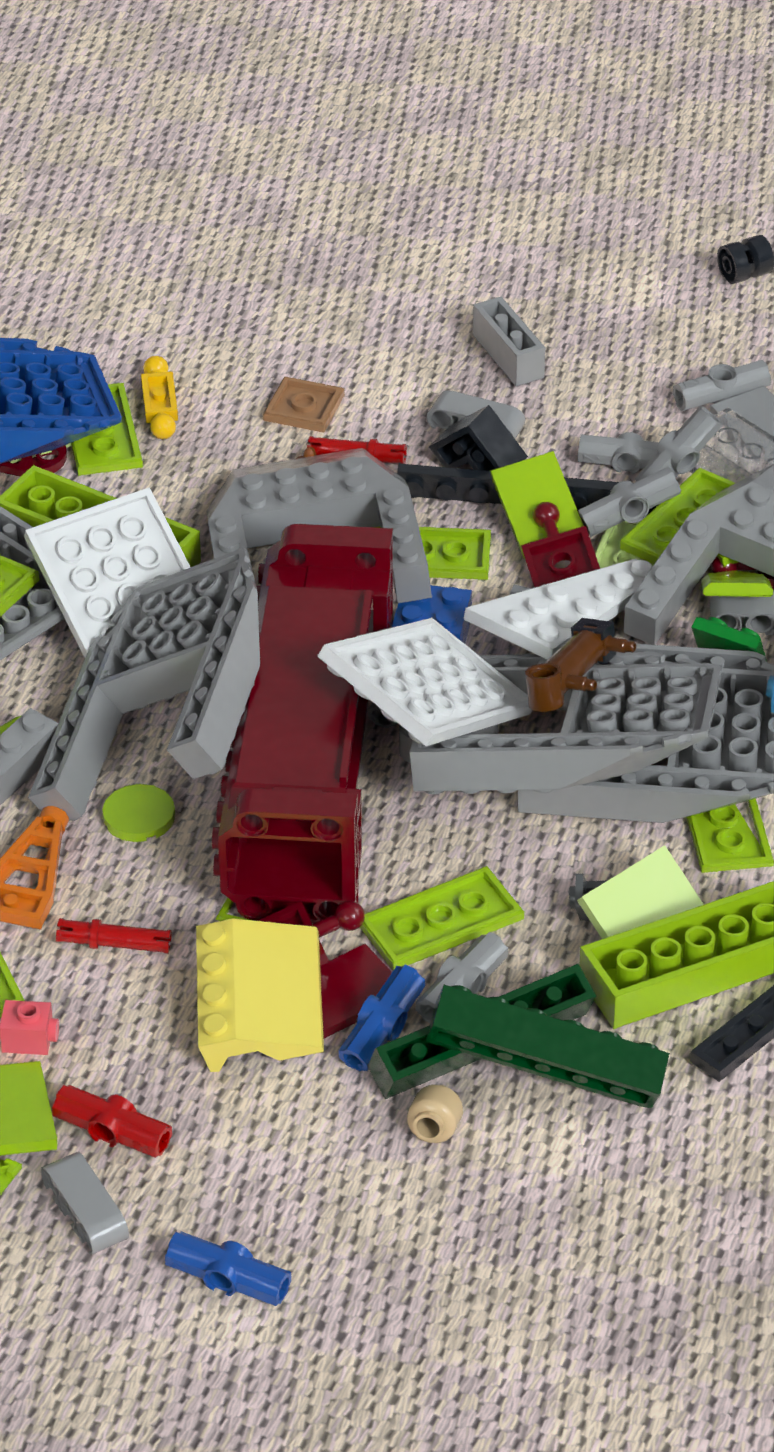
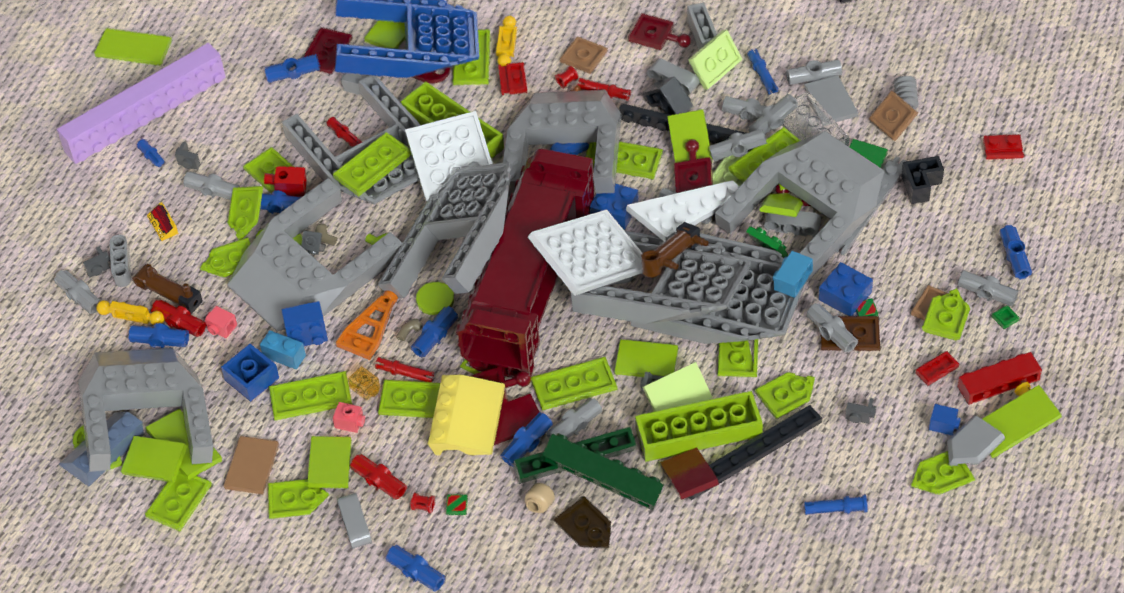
camera: 15 degrees right, 10 degrees up
(43, 966) = (364, 383): none -> clear yellow brick
(98, 866) = (407, 327): none -> dark tan arm
(136, 983) = (408, 398): none -> lime tile
(154, 865) = (434, 331): none -> blue piece
(187, 452) = (513, 78): none -> red plate
(199, 1160) = (423, 502): none -> red bush
(277, 1149) = (456, 504): none -> green tile
(284, 439) = (566, 77): none -> red bush
(433, 357) = (662, 33): none -> dark red plate
(534, 1149) = (585, 525): none -> dark brown tile
(545, 381) = (715, 59): none -> yellowish green tile
(551, 860) = (639, 357): none -> lime tile
(623, 386) = (759, 66): none -> blue pin
(707, 1032) = (689, 473): none -> dark red tile

